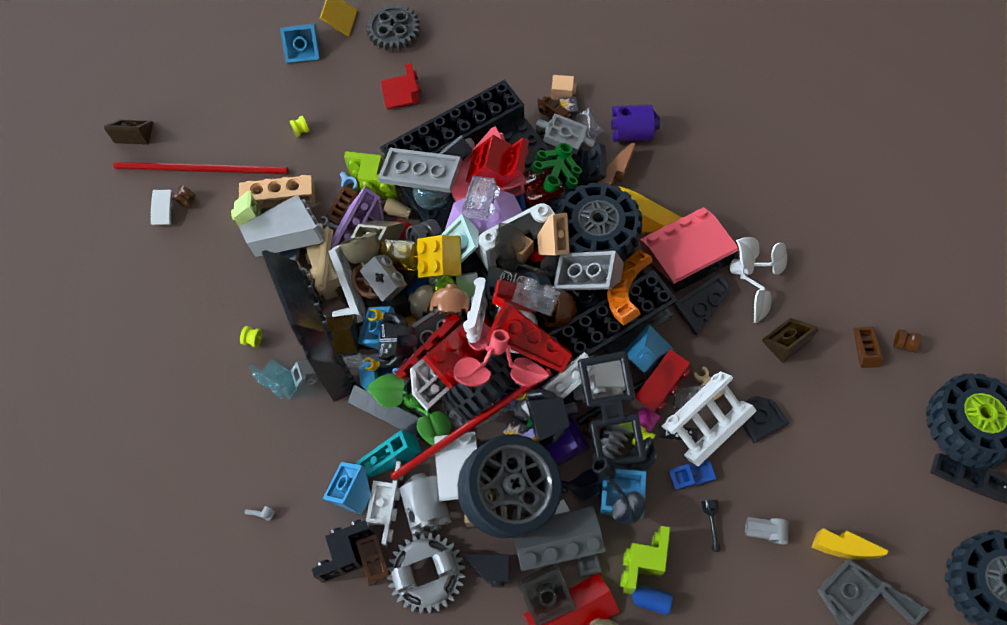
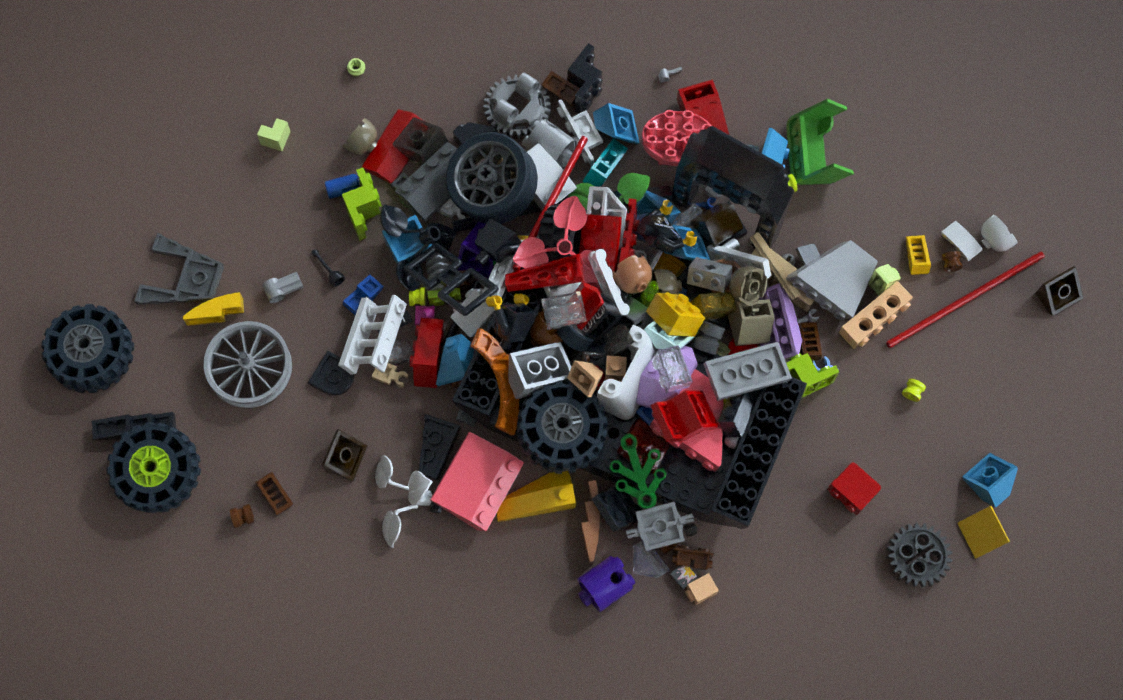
camera: 140 degrees right, 5 degrees up
(133, 191) = (996, 235): none -> white cylinder
(200, 212) = (918, 266): none -> yellow slope
(208, 357) = (806, 144): none -> bright green windscreen
(236, 369) = (775, 146): none -> dark azure slope
(264, 448) = (704, 102): none -> red slope
(308, 422) = (668, 133): none -> coral bracket
(583, 315) = (512, 319): none -> black torso
(841, 469) = (247, 364): none -> light grey wheel

